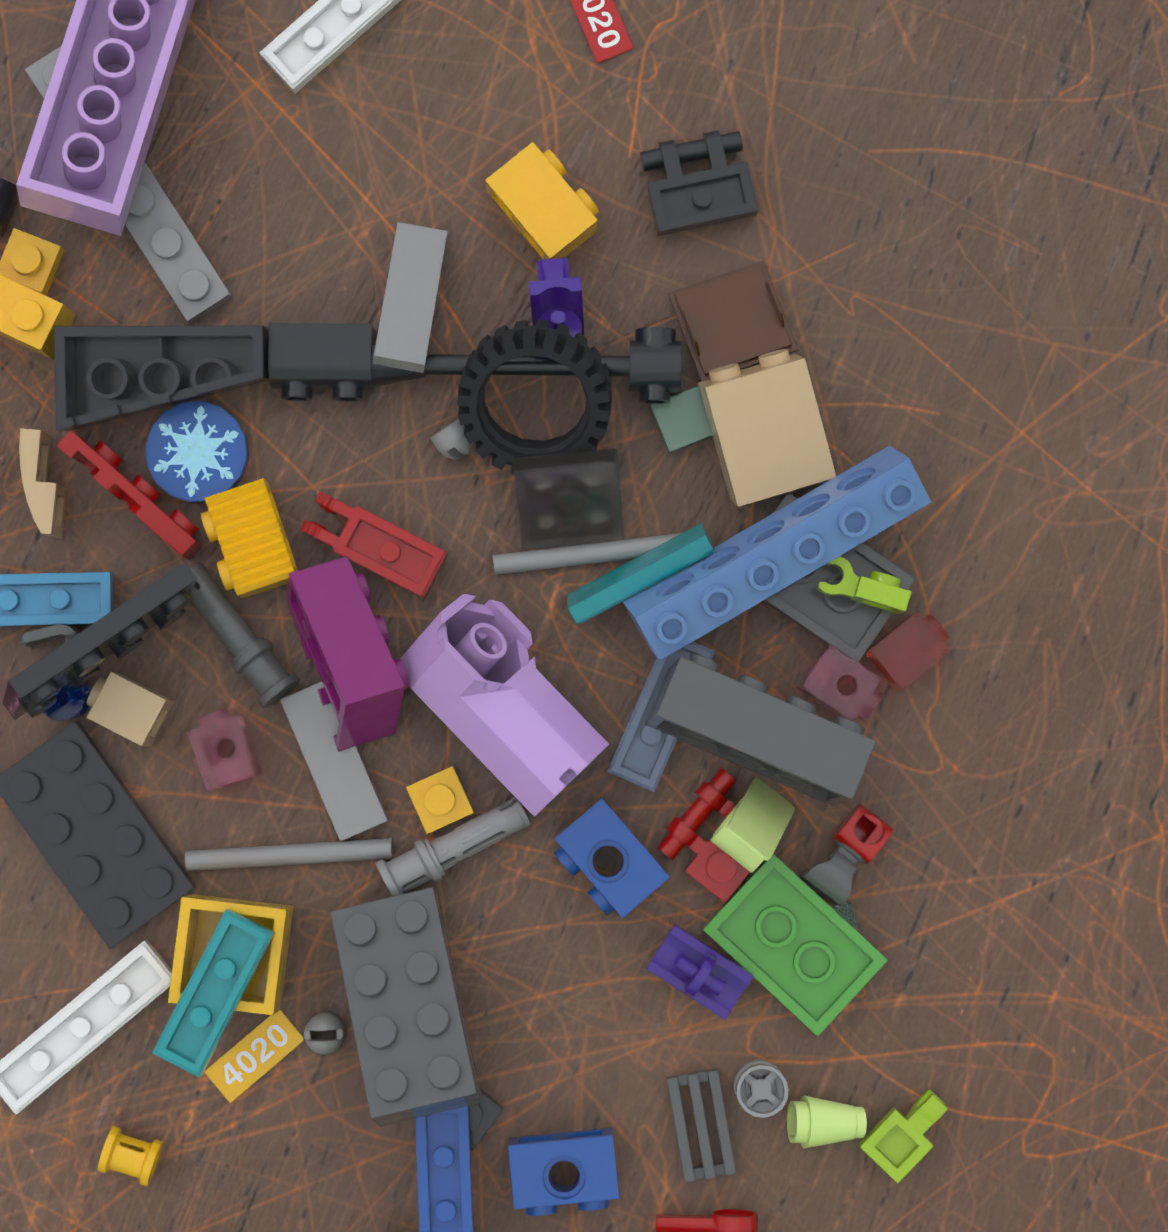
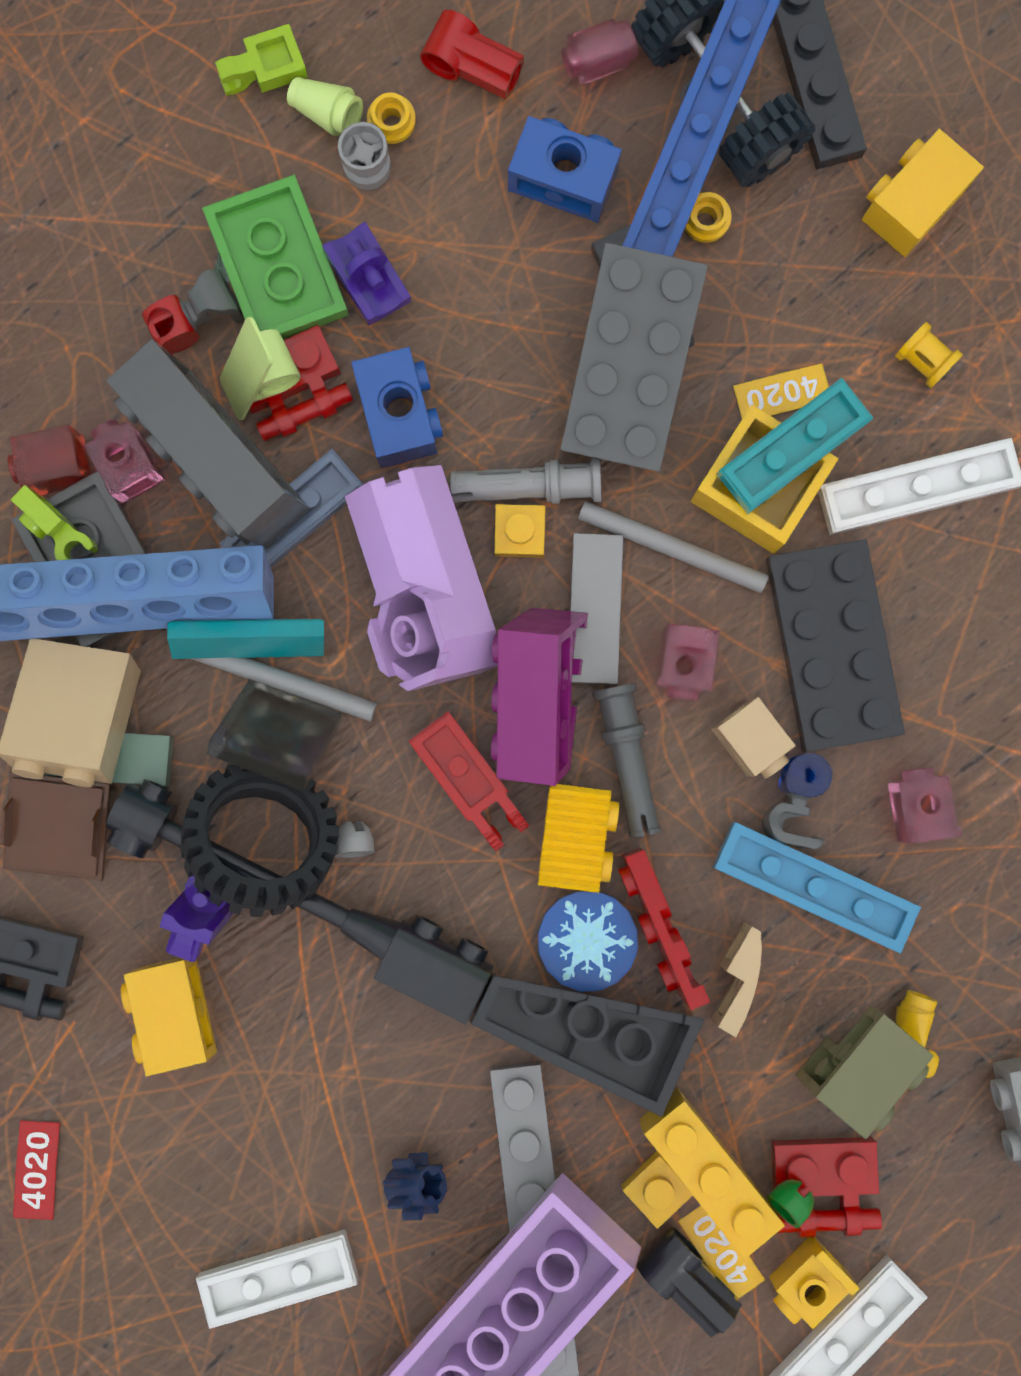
camera: 150 degrees left, 0 degrees up
(115, 633) = (733, 804): black plate -> none
(247, 161) = (415, 1186): none -> dark blue gear
(323, 1022) = (710, 389): light grey hinge -> none
(388, 1191) = (720, 211): none -> yellow plate
(410, 297) = (328, 986): light grey tile -> none
(708, 1169) = (442, 116): dark grey tile -> none
(756, 1157) = (392, 105): none -> yellow plate

